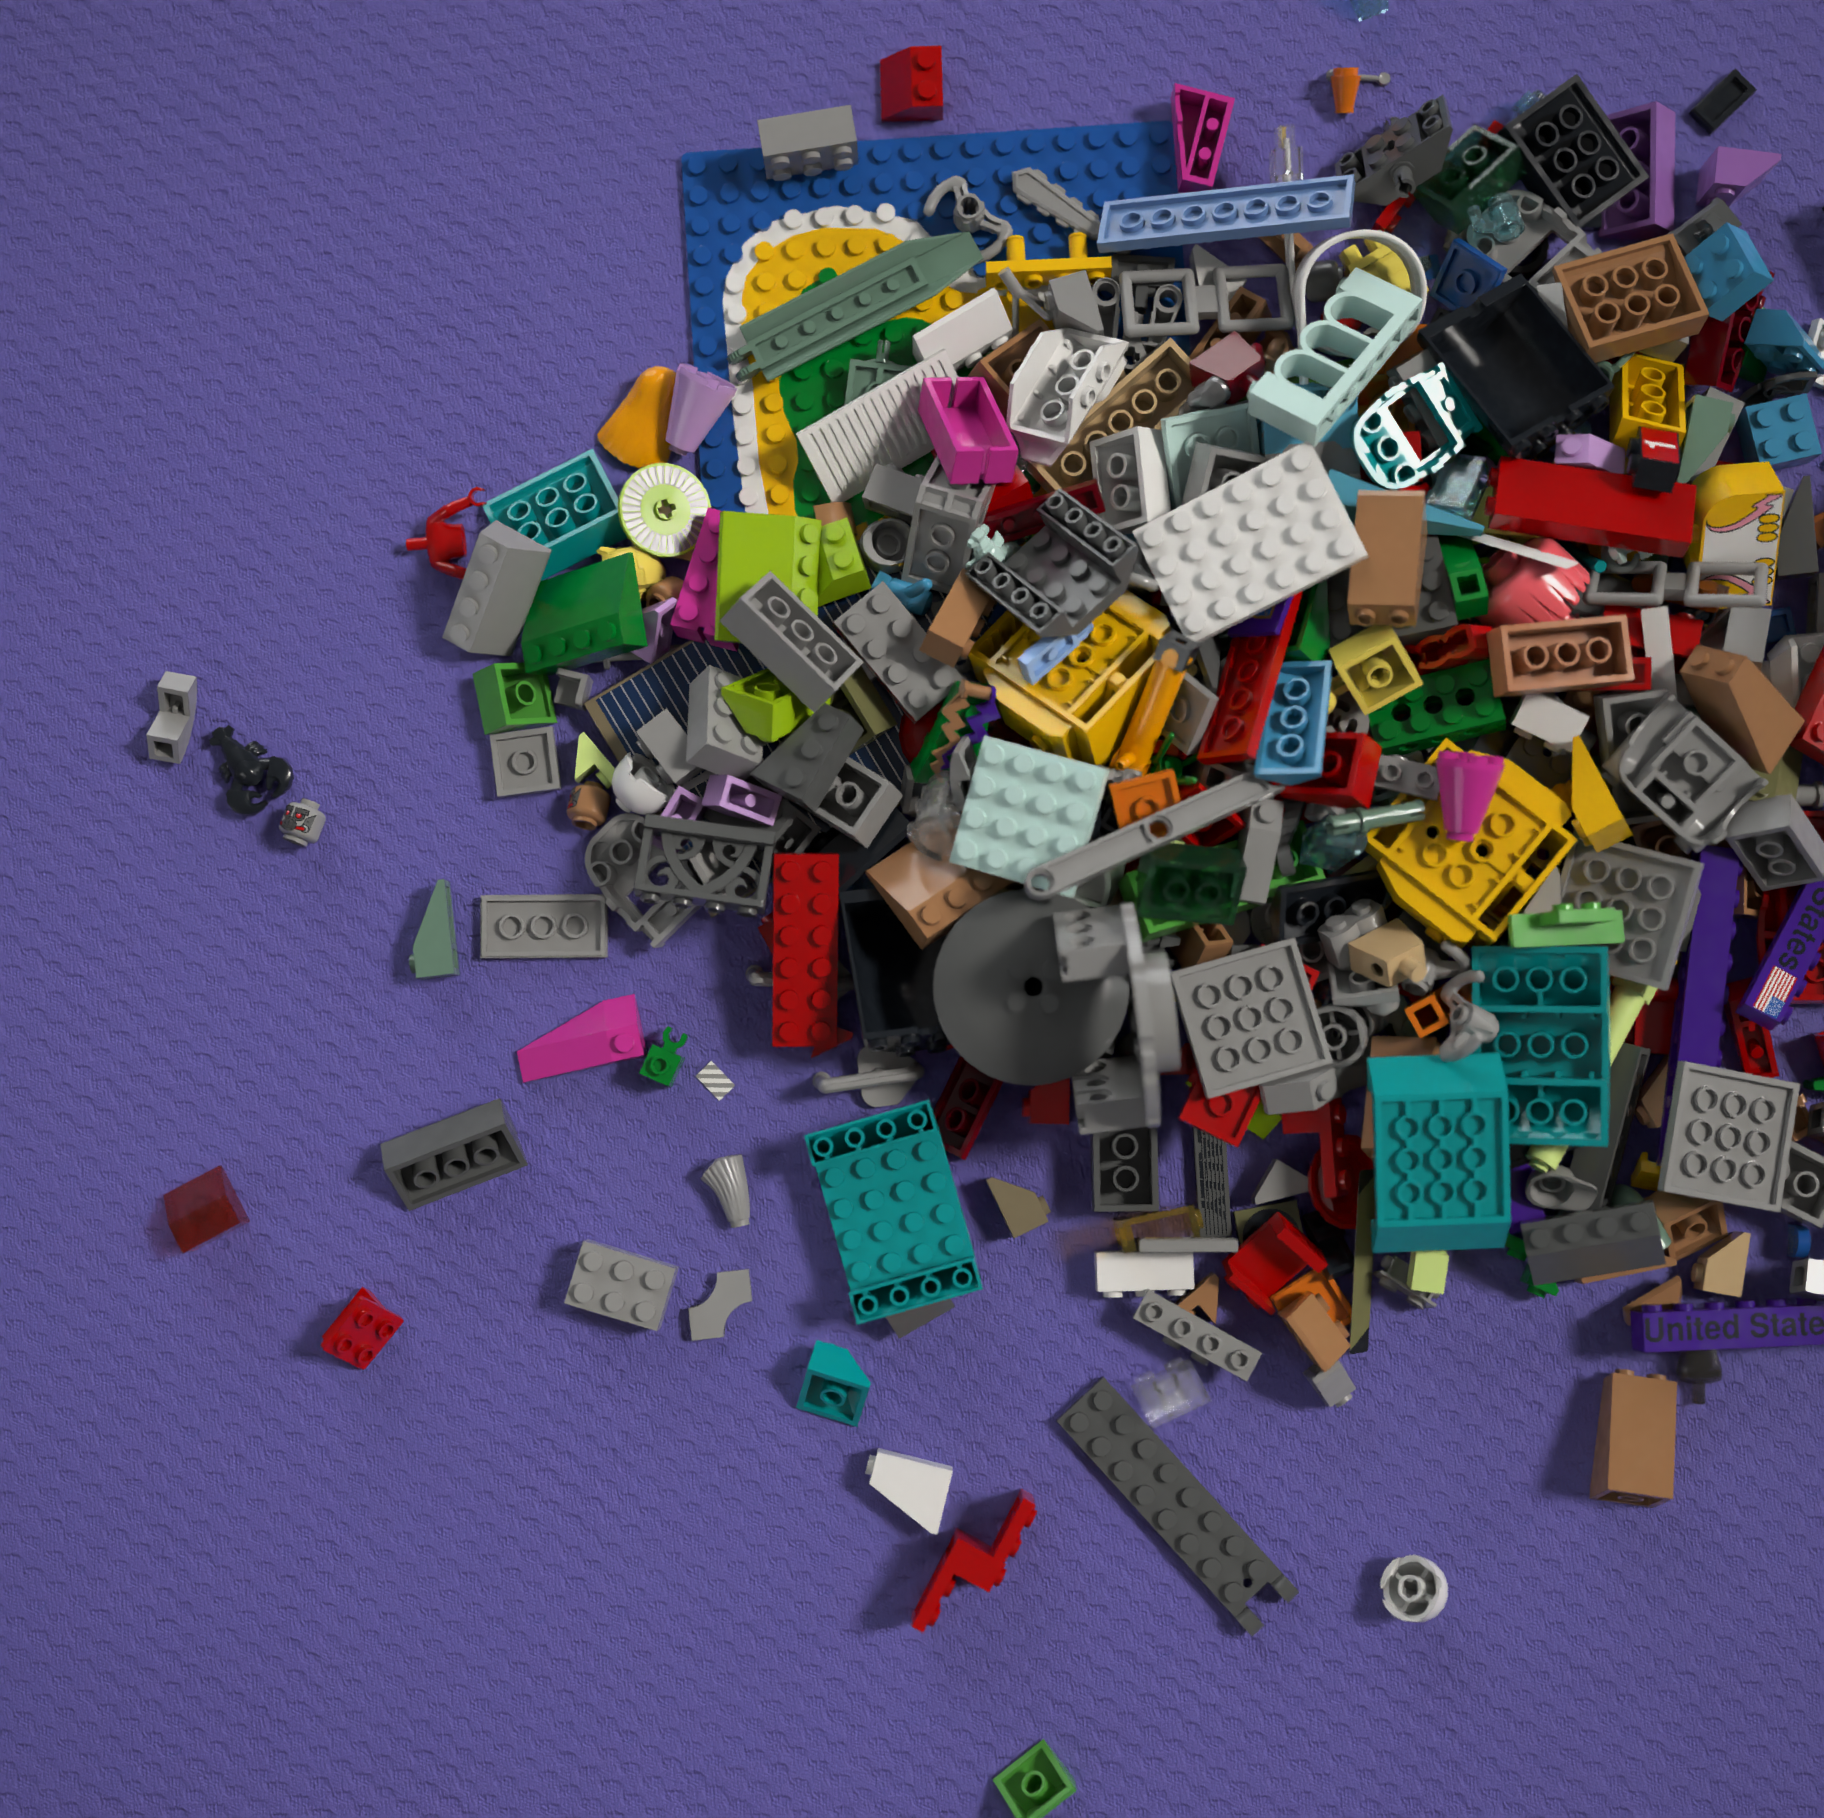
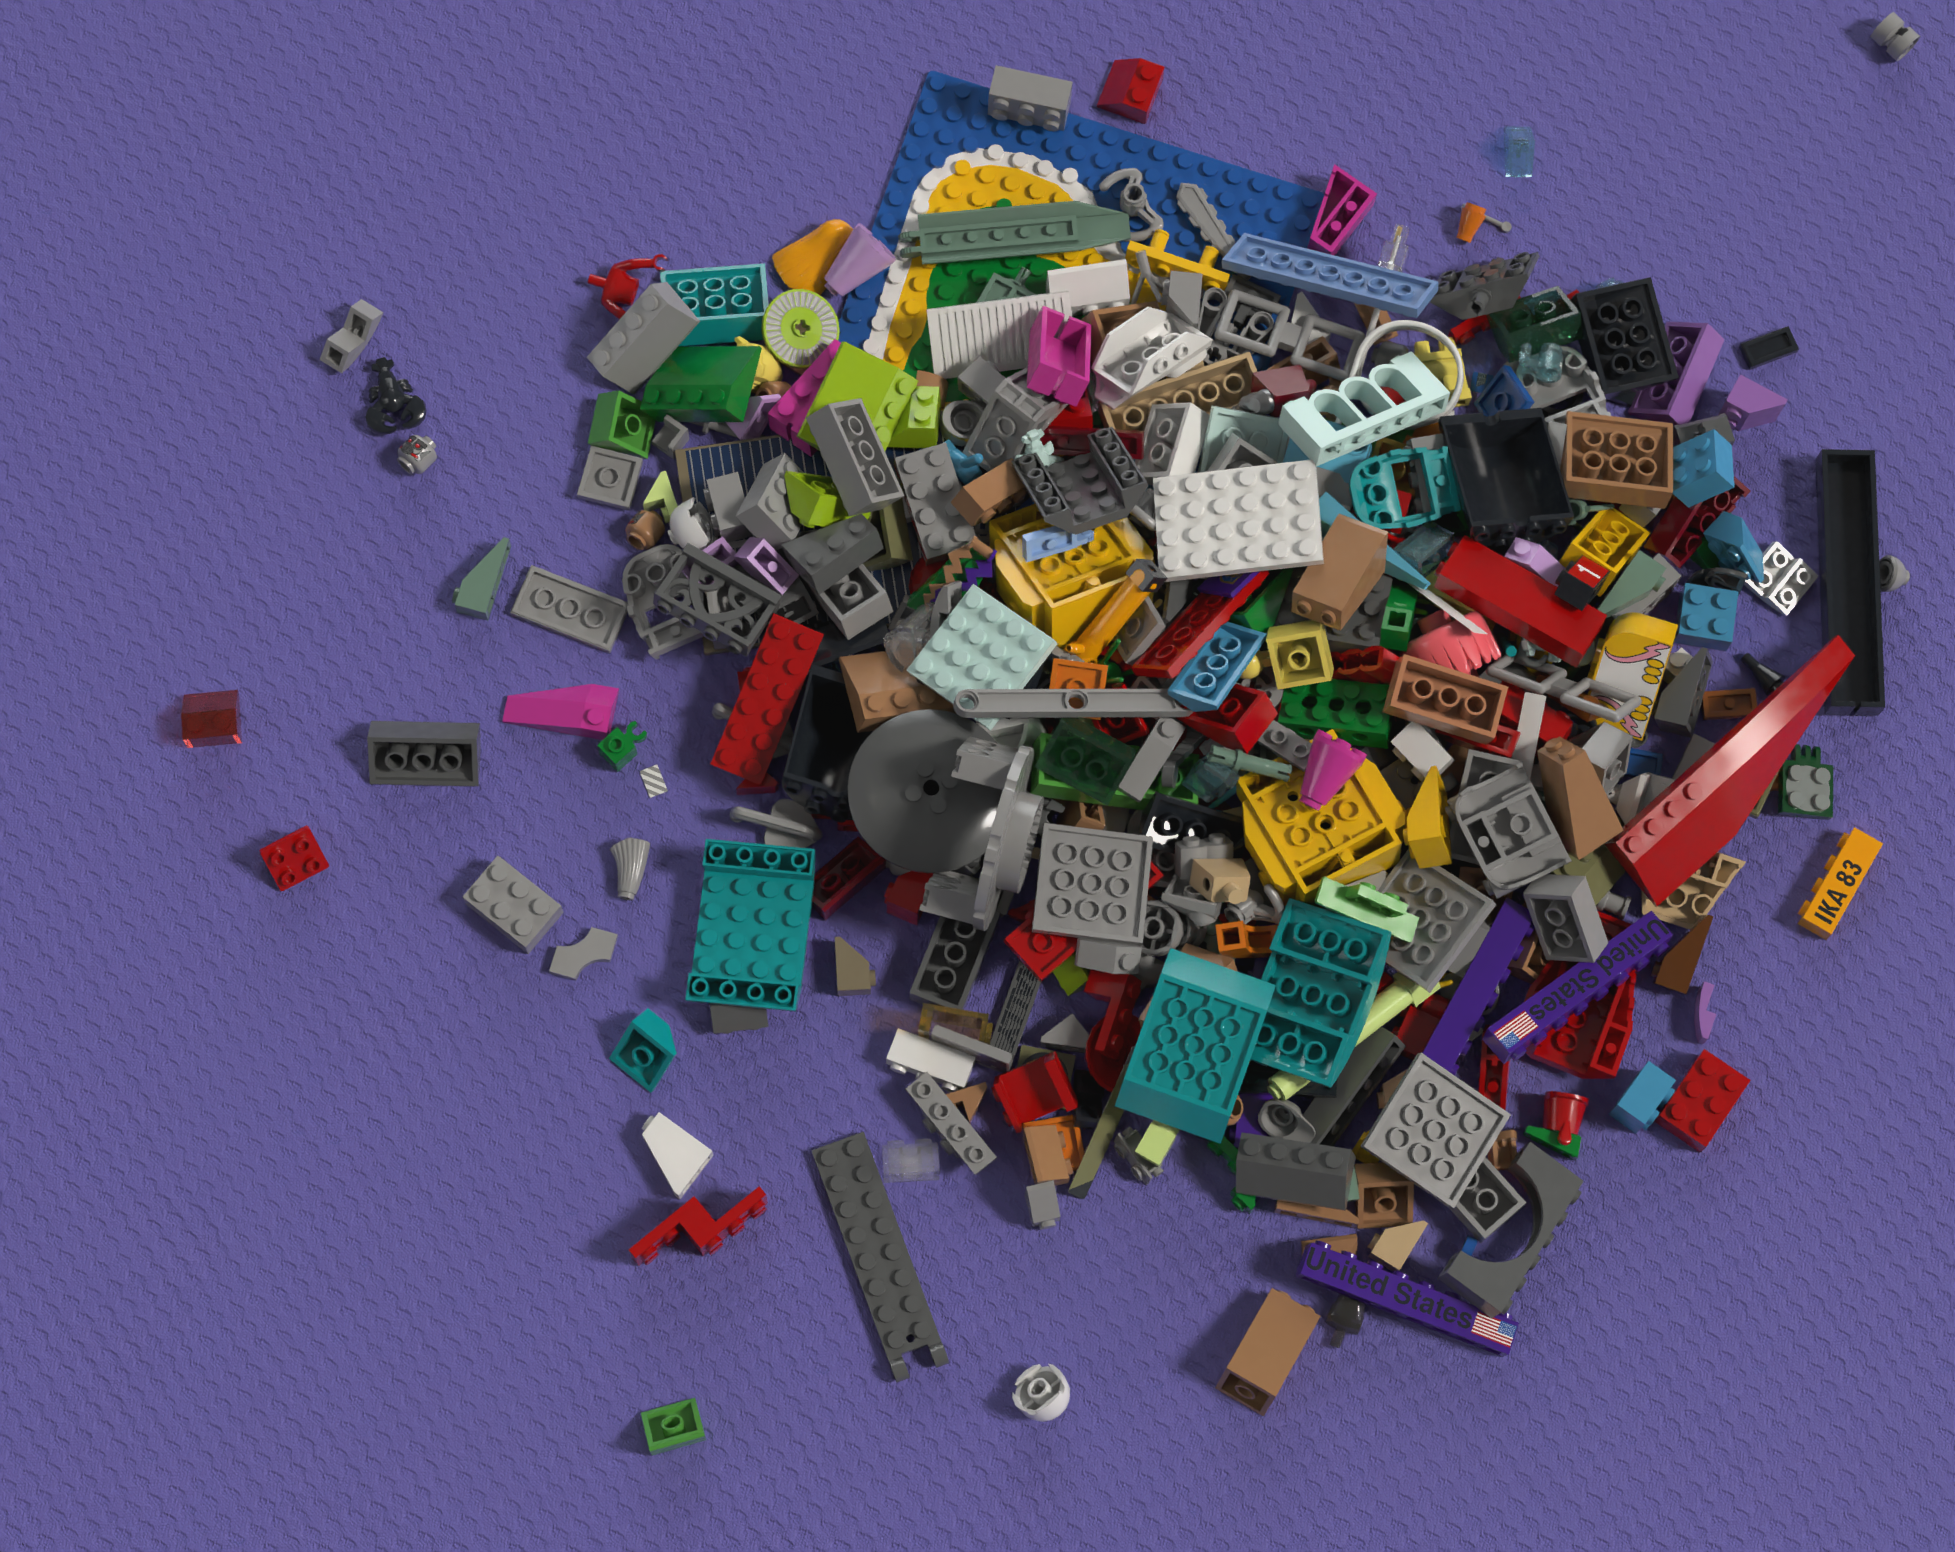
camera: 15 degrees right, 10 degrees down
(1468, 1021) = (1261, 949): light grey piece -> none

